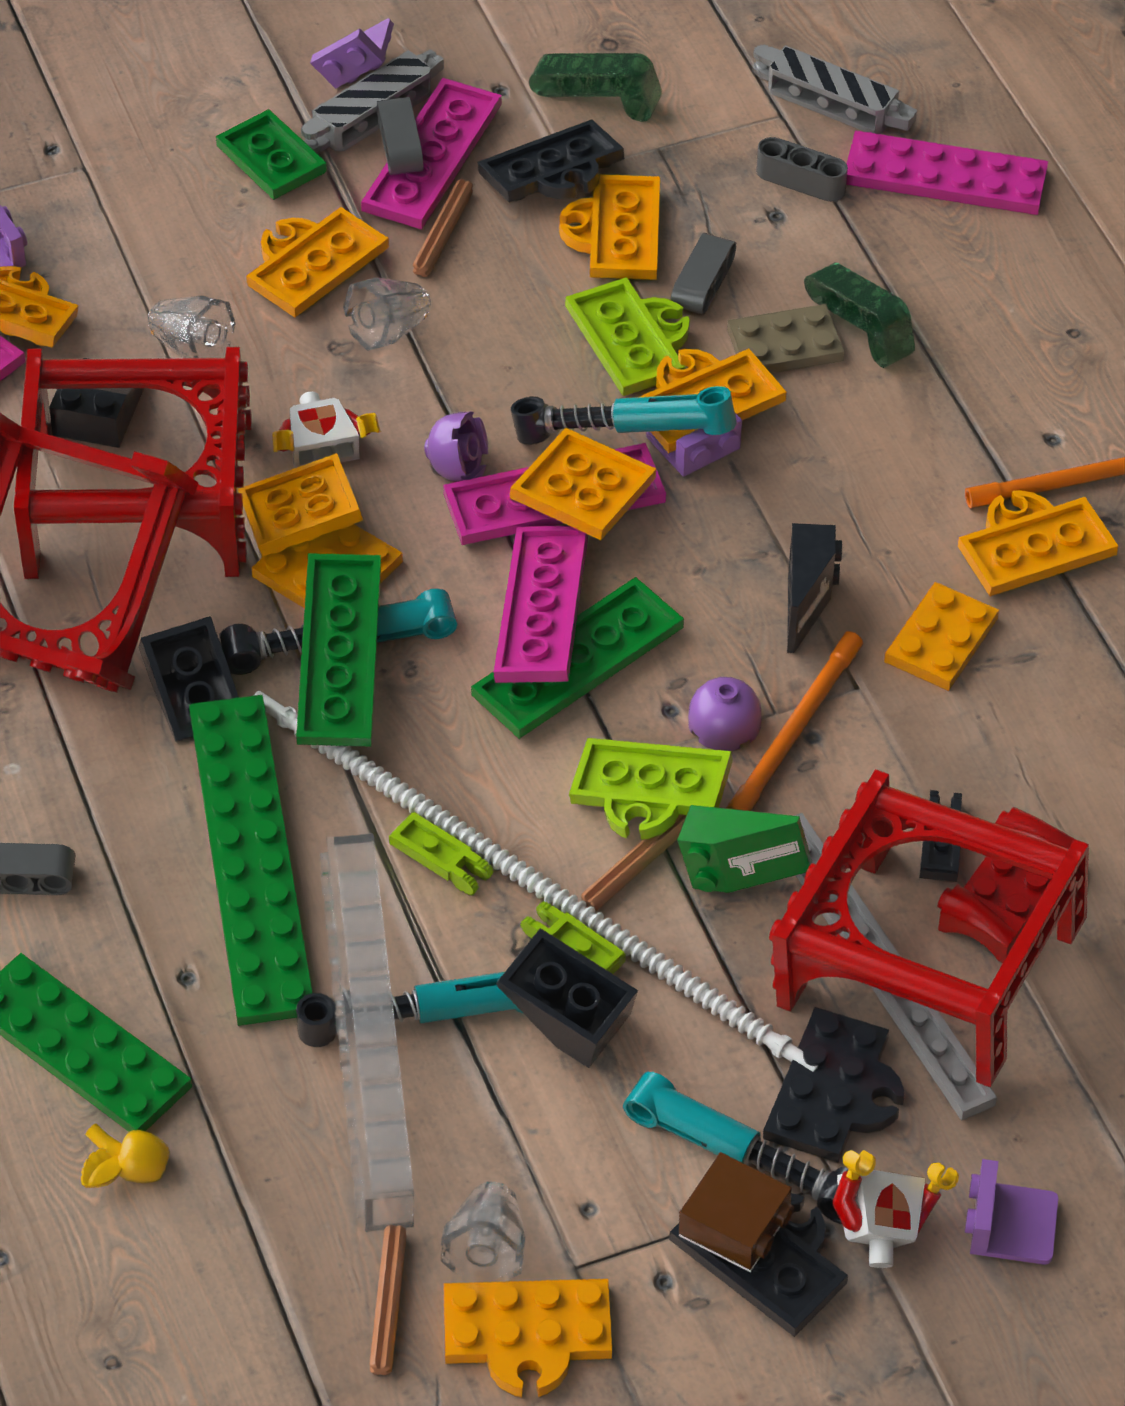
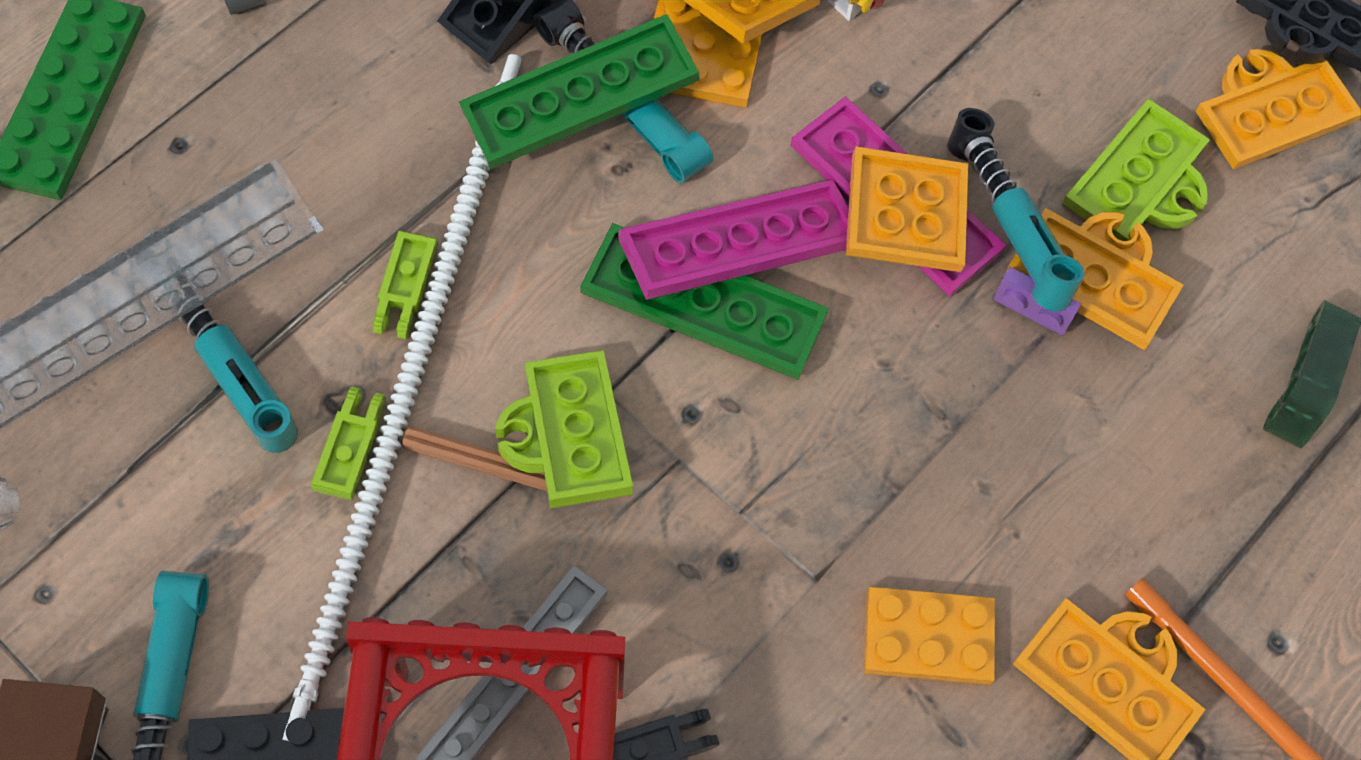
camera: 60 degrees right, 15 degrees up
(250, 859) = (345, 115): green plate -> none
(457, 446) = (896, 89): medium lavender cylinder -> none
(567, 996) = (255, 462): black slope -> none
(703, 273) = (1266, 206): dark grey beam -> none
(725, 714) = (704, 464): medium lavender cylinder -> none
(741, 848) = (501, 531): green slope -> none
(788, 338) = (1235, 319): dark tan plate -> none
(810, 577) = (906, 469): black slope -> none
(839, 659) = (836, 545): orange piece -> none

